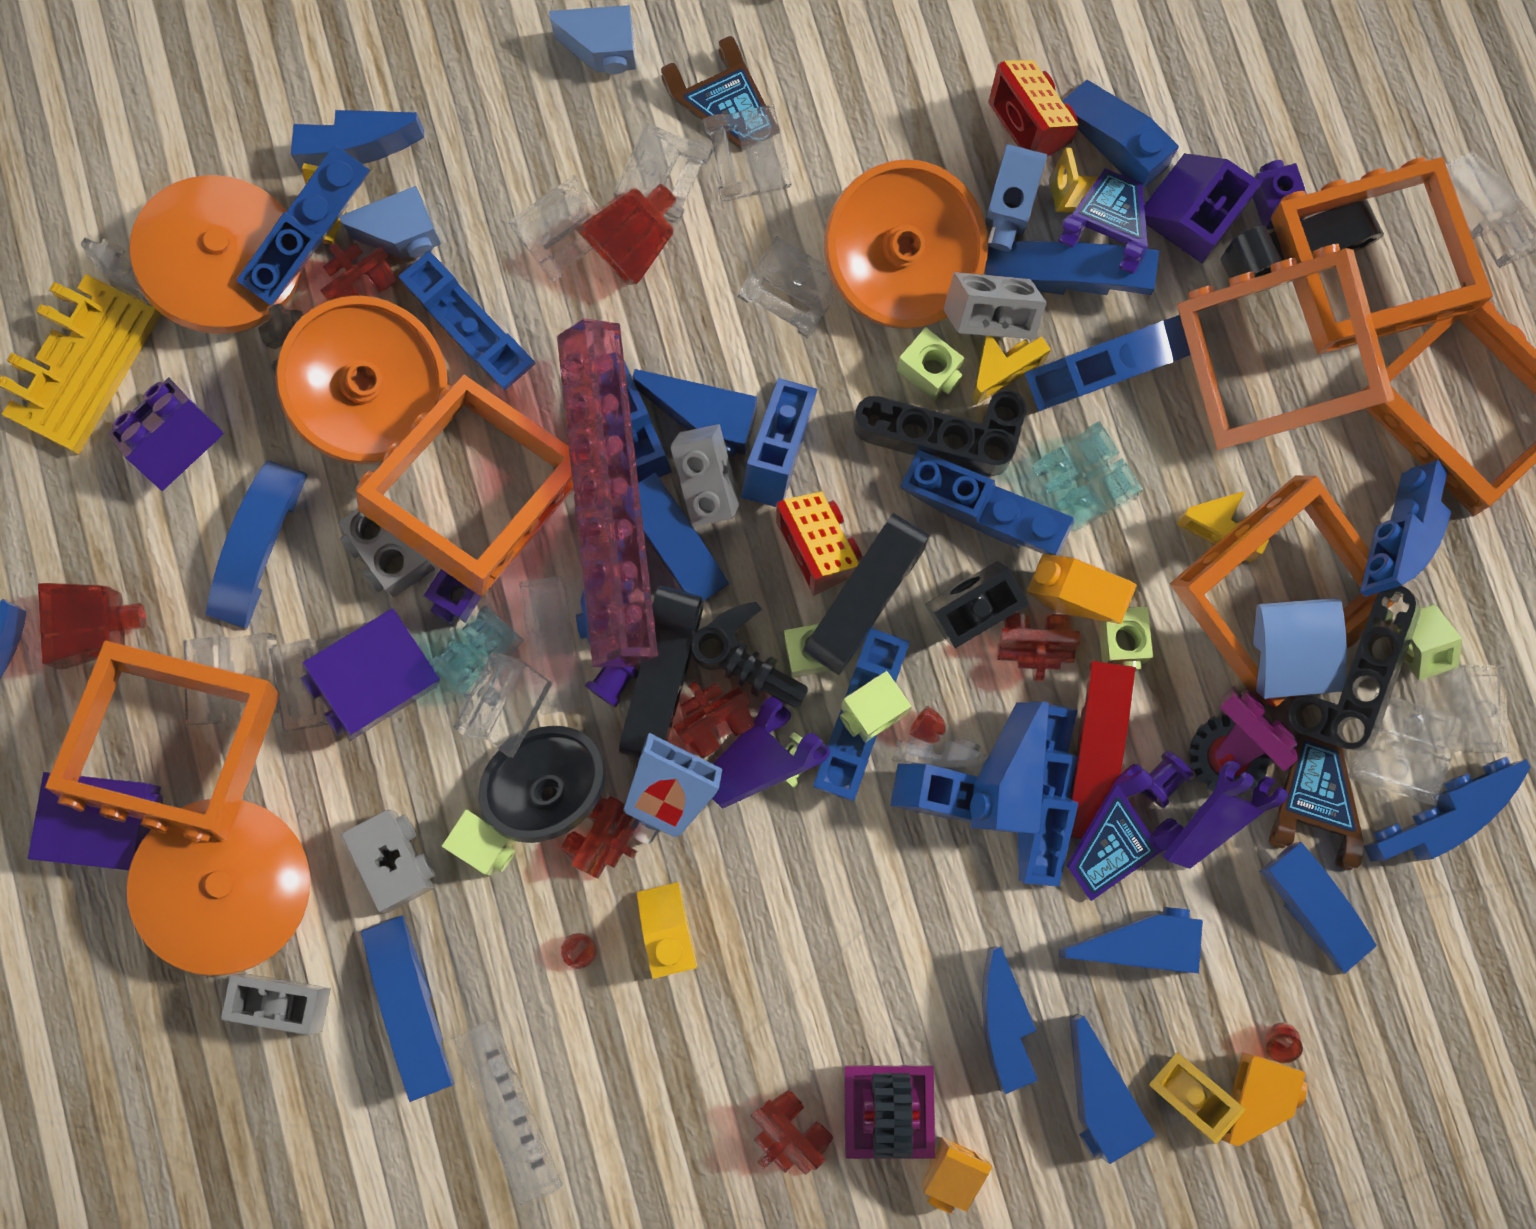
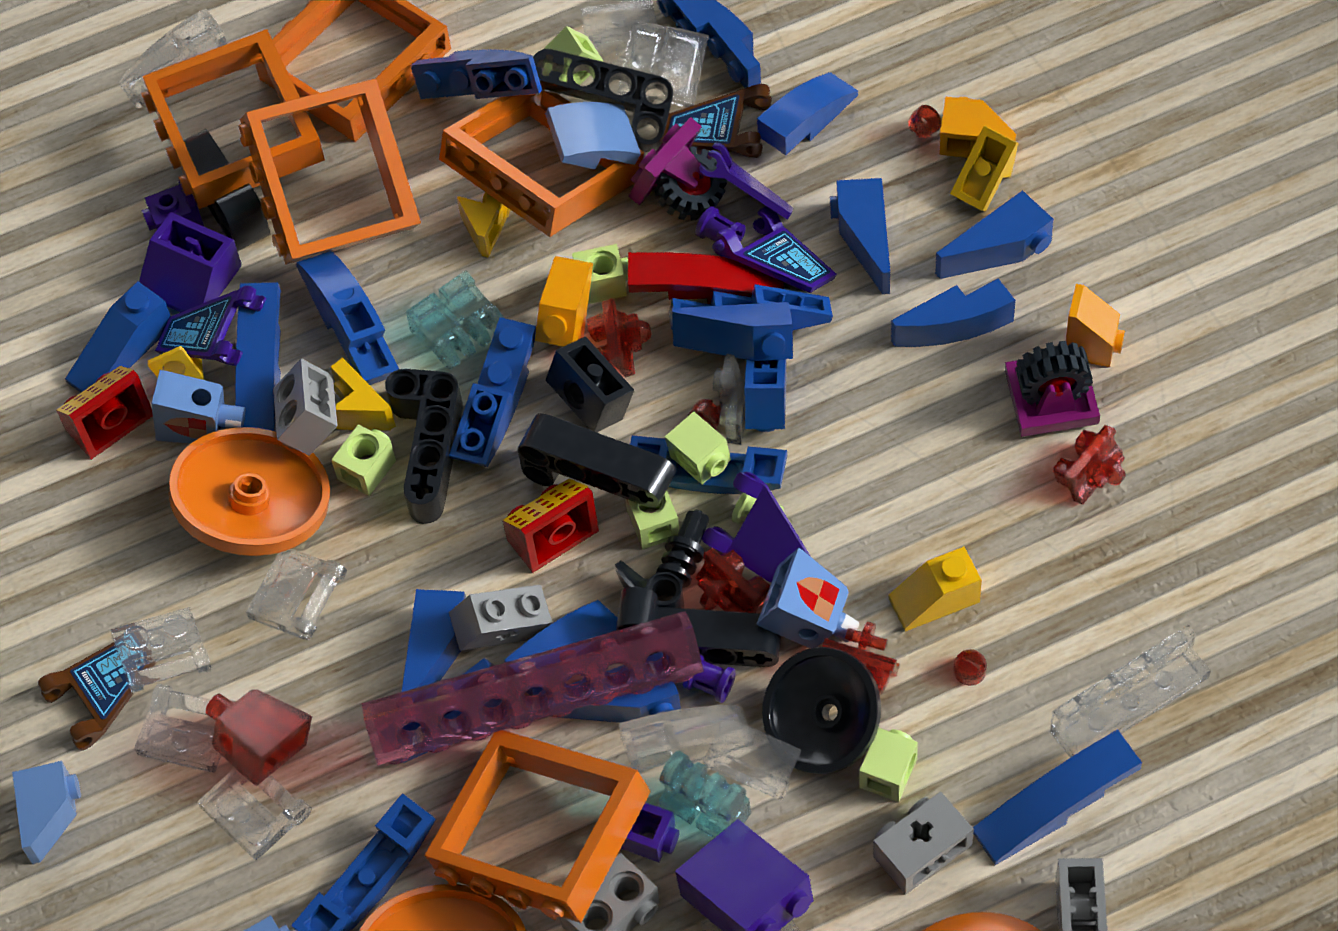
camera: 95 degrees left, 20 degrees down
(778, 443) = (462, 567): blue slope -> none

